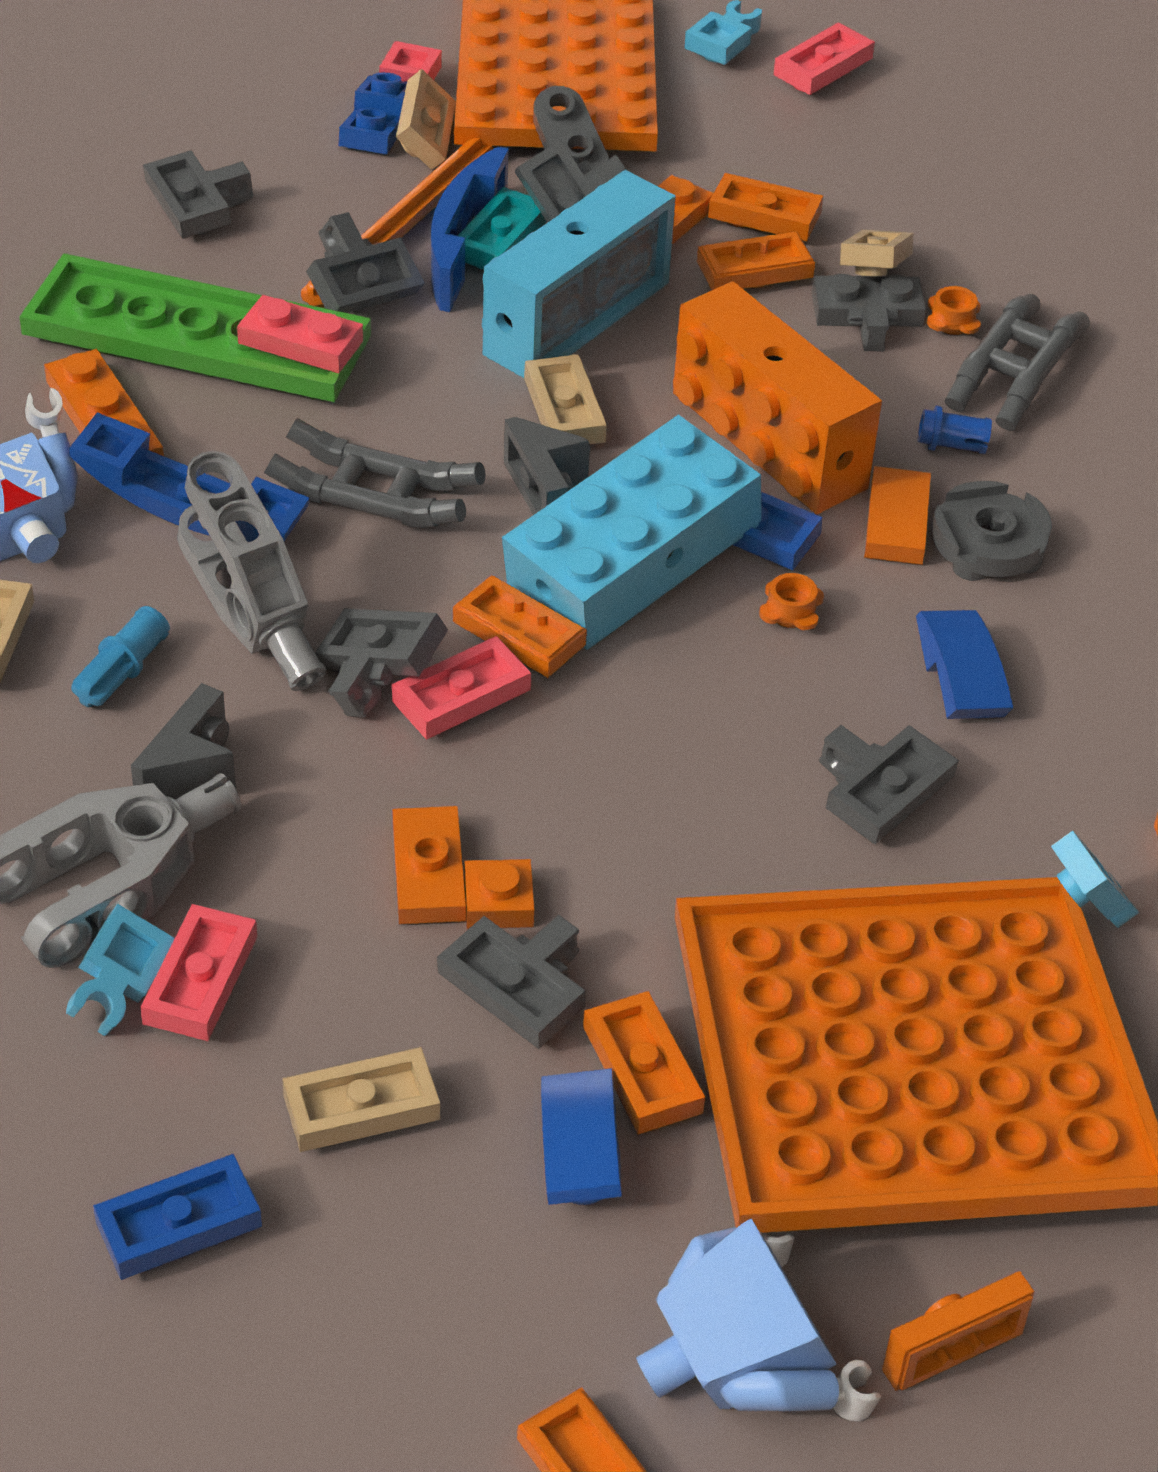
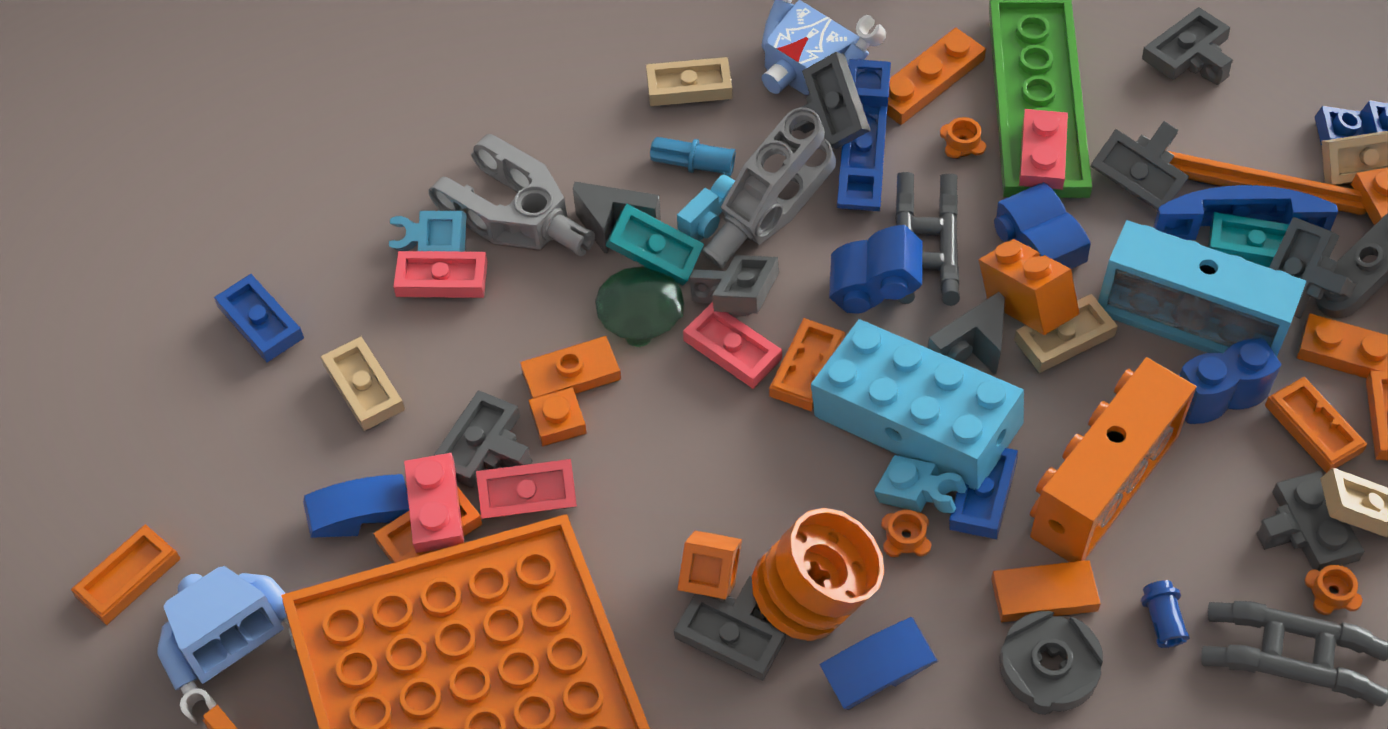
camera: 80 degrees right, 10 degrees up
(130, 482) = (834, 100): none -> dark grey hinge
(227, 407) = (962, 138): none -> orange plate
(238, 665) = (701, 215): none -> medium azure plate
(270, 717) = (654, 244): none -> teal plate
(347, 770) = (639, 304): none -> clear green dish
(413, 376) = (1042, 223): none -> blue brick
(422, 514) = (876, 269): none -> blue brick
(516, 383) = (1034, 286): none -> orange piece
(617, 936) = (526, 489): none -> coral plate
(620, 1029) = (433, 502): none -> coral plate
(680, 275) = (1230, 379): none -> blue brick
(733, 577) = (914, 482): none -> medium azure plate
(803, 766) = (709, 564): none -> orange brick
(860, 659) = (817, 574): none -> orange wheel

